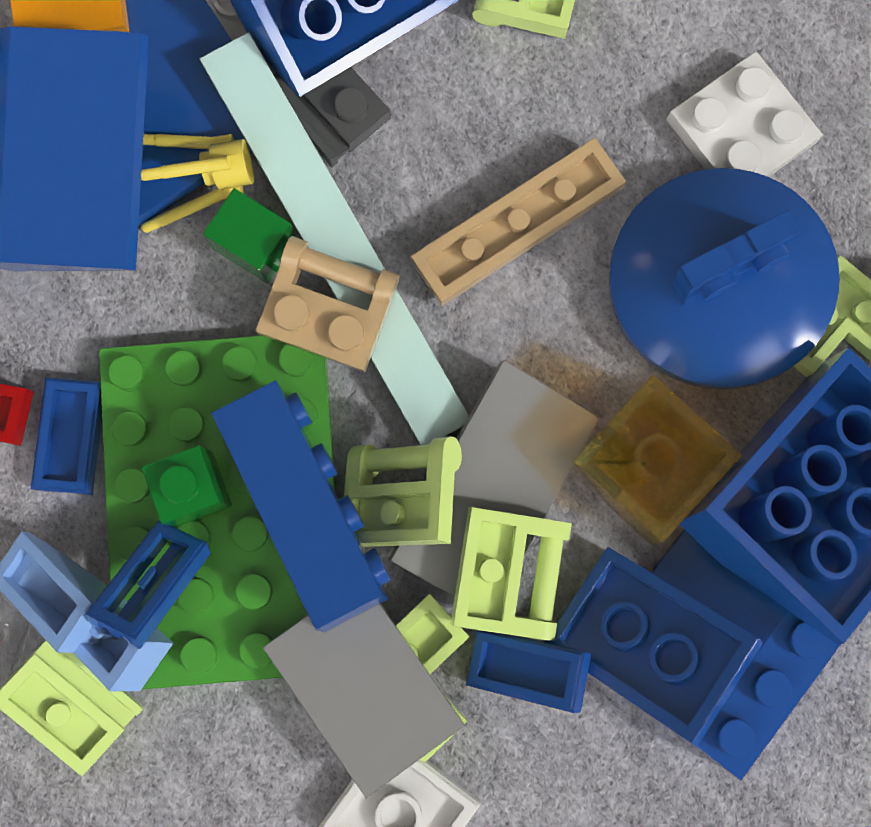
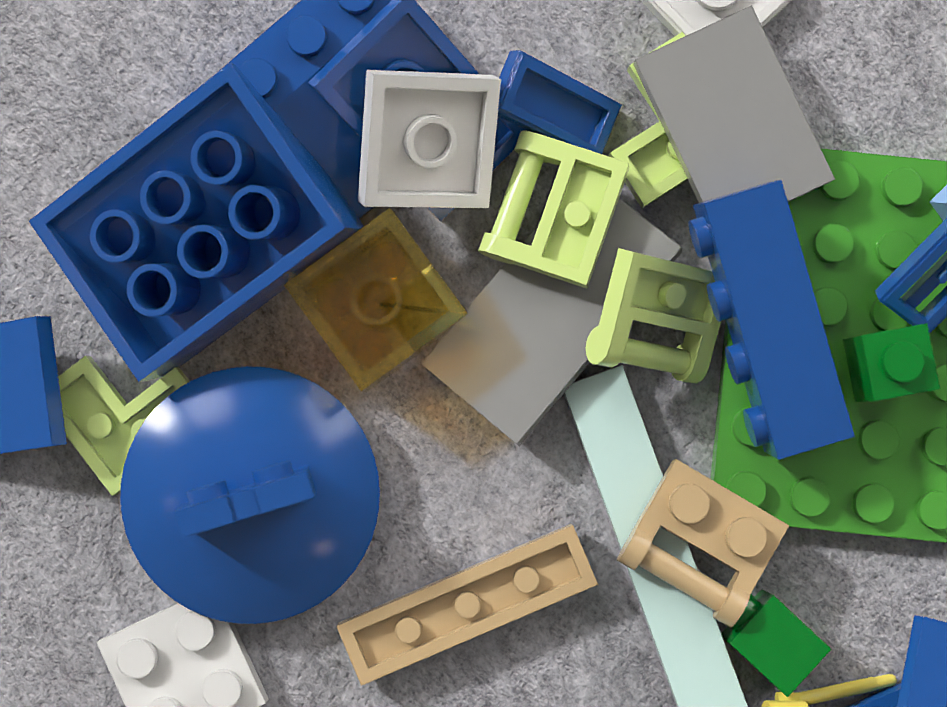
camera: 170 degrees left, 5 degrees up
(641, 612) = (428, 139): none -> white plate

